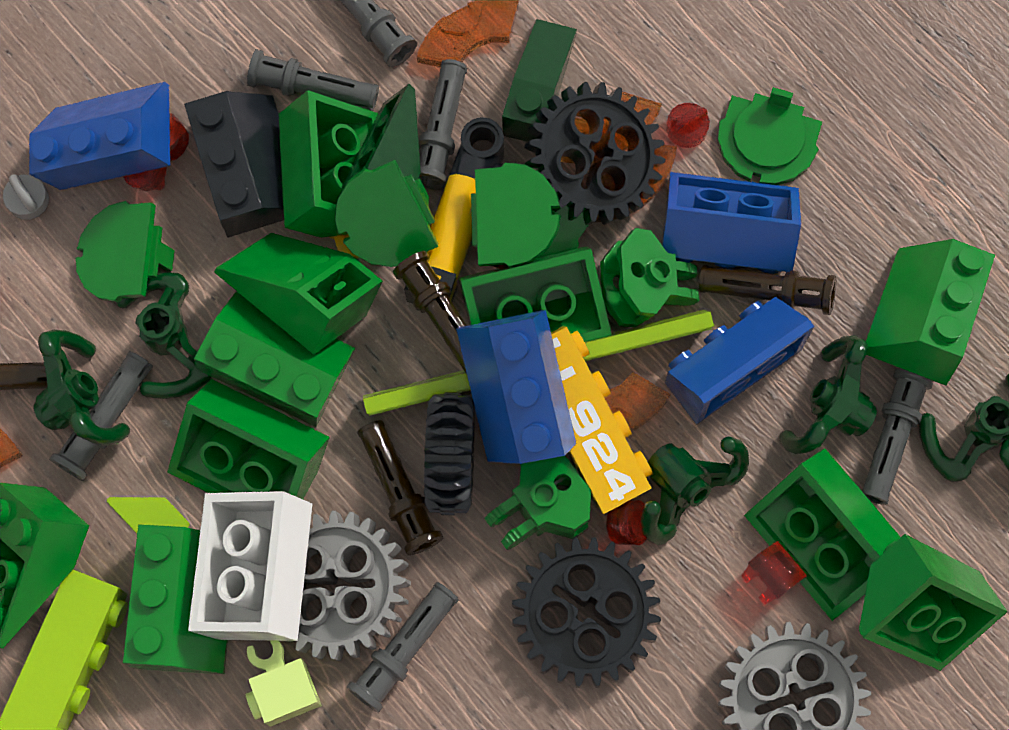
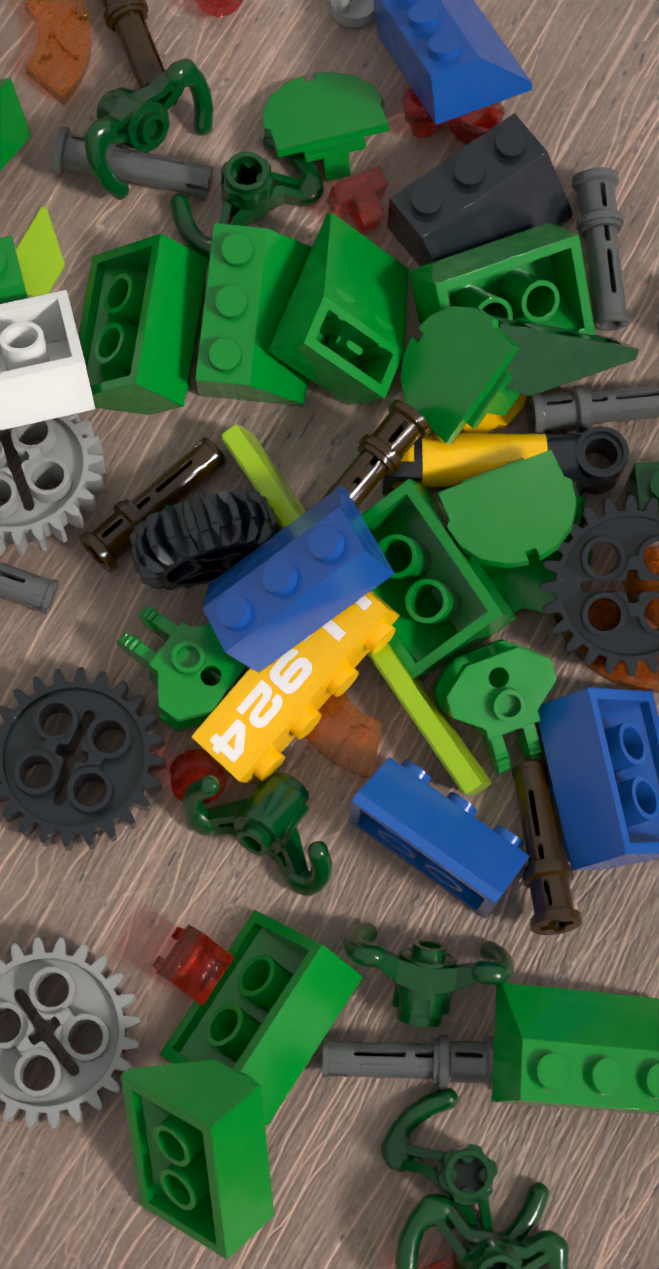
camera: 65 degrees right, 0 degrees up
(204, 246) = (360, 198): none -> clear red tile

